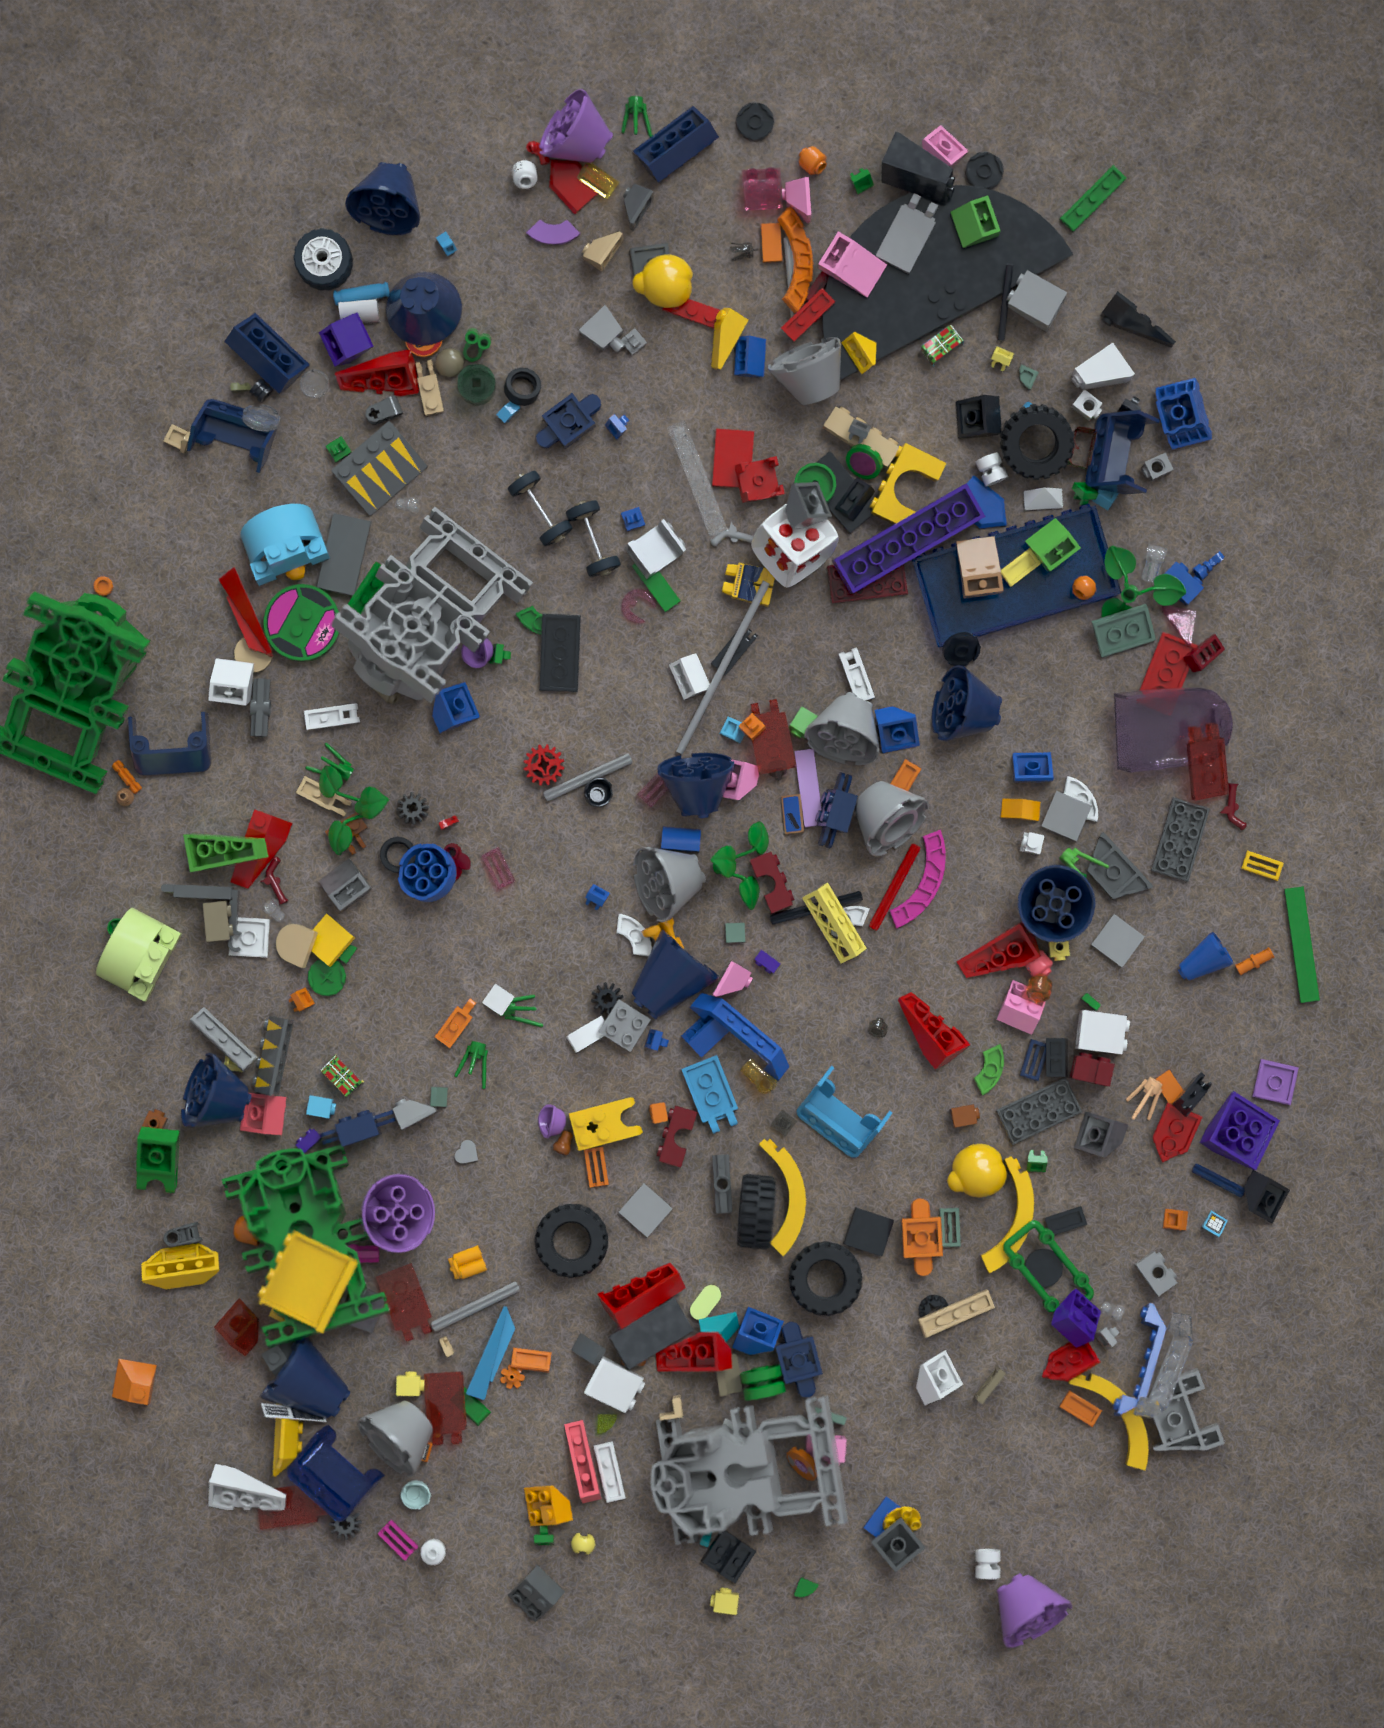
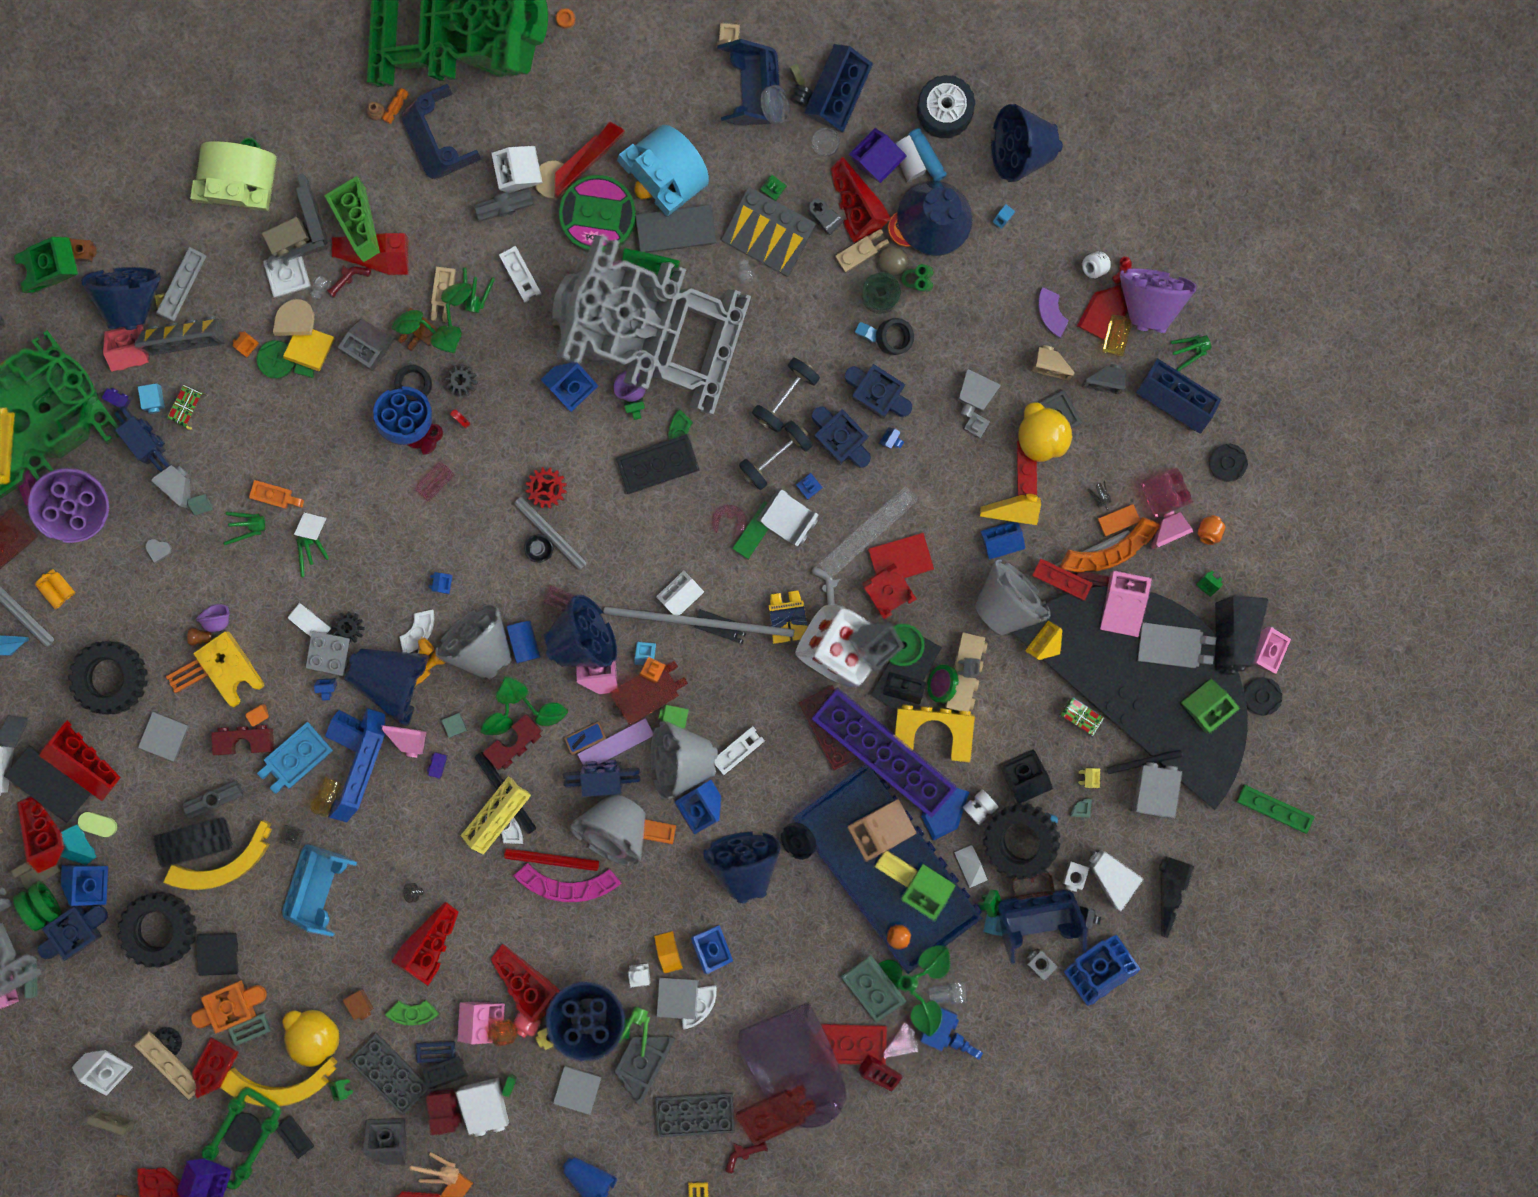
camera: 70 degrees right, 0 degrees up
(598, 471) = (841, 437): none -> dark blue brick
(972, 1271) = (213, 1067): none -> red tile

